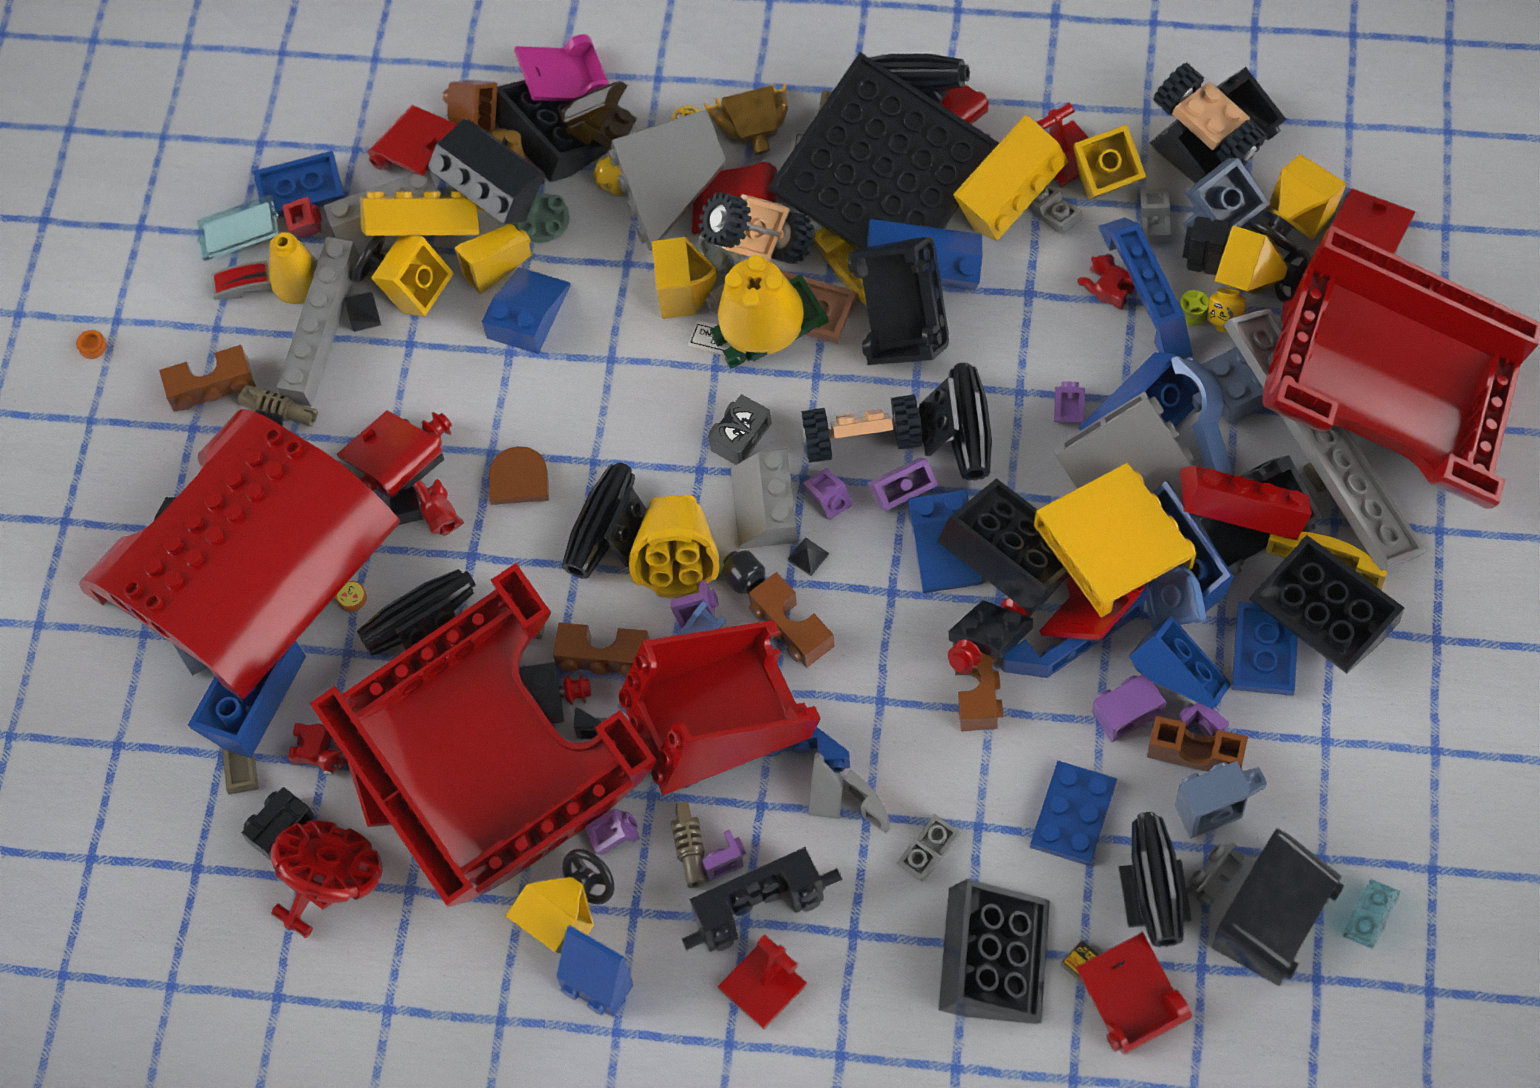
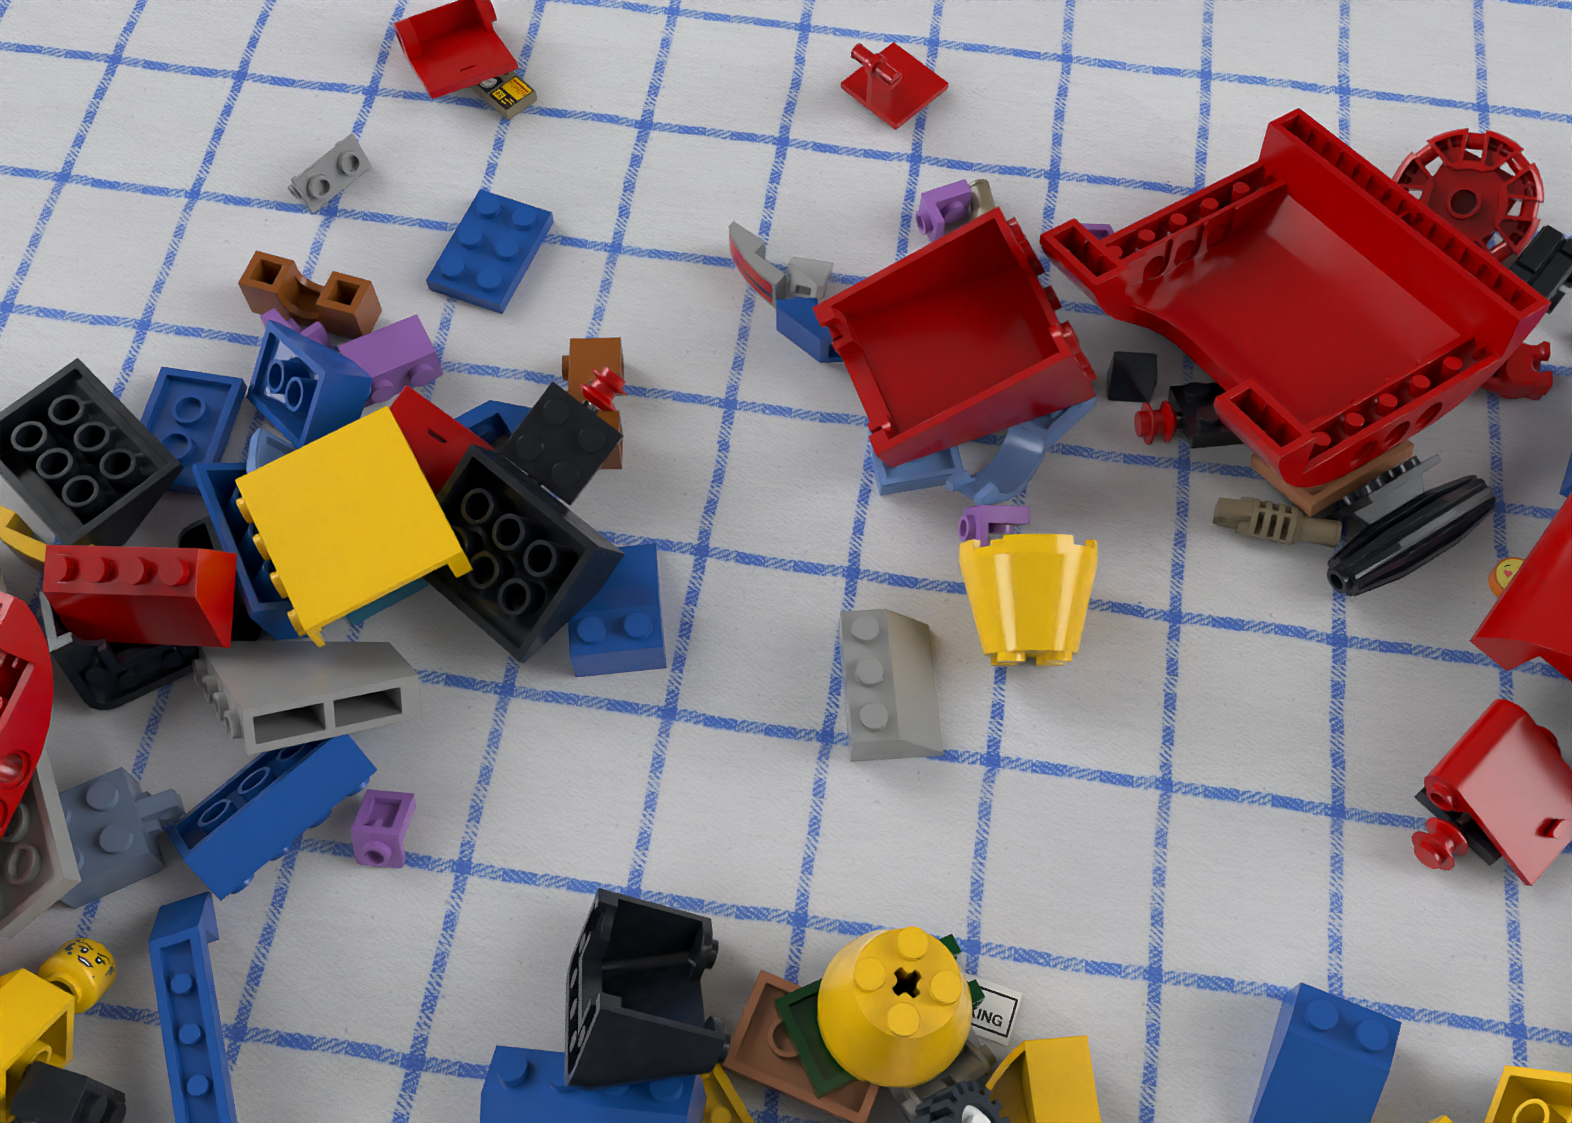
camera: 175 degrees right, 0 degrees up
(406, 506) = (1457, 709): black slope -> none
(437, 509) = (1405, 688): red animal -> none
(518, 477) = (1286, 757): dark orange tile -> none
(552, 905) = (1153, 137): yellow piece -> none
(574, 650) = (1161, 471): dark orange arch -> none
(593, 973) = (1098, 75): blue slope -> none
(606, 521) = (1138, 655): black plate -> none
(739, 429) = (929, 808): dark grey brick -> none
(742, 571) = (921, 568): black head -> none
(788, 874) = (867, 168): black brick -> none
(804, 639) = (832, 472): dark orange arch -> none
(808, 556) = (822, 606): black slope -> none
(828, 492) = (790, 695): medium lavender bracket -> none
(903, 483) = (669, 686): medium lavender brick -> none
(905, 424) = (728, 784): black plate -> none
(929, 848) = (684, 217): light grey slope -> none
(959, 415) = (565, 781): black plate -> none
(994, 953) = (615, 98): black slope -> none
(1113, 284) = (265, 1054): red animal -> none
(1155, 883) = (402, 146): black plate -> none
(1194, 300) = (123, 989): neon yellow wheel -> none
(1206, 427) = (147, 807): medium blue piece -> none
(1216, 796) = (300, 224): sand blue hinge -> none
(1276, 908) = (255, 117): black windscreen -> none
(1371, 913) = (149, 118): clear light blue slope -> none

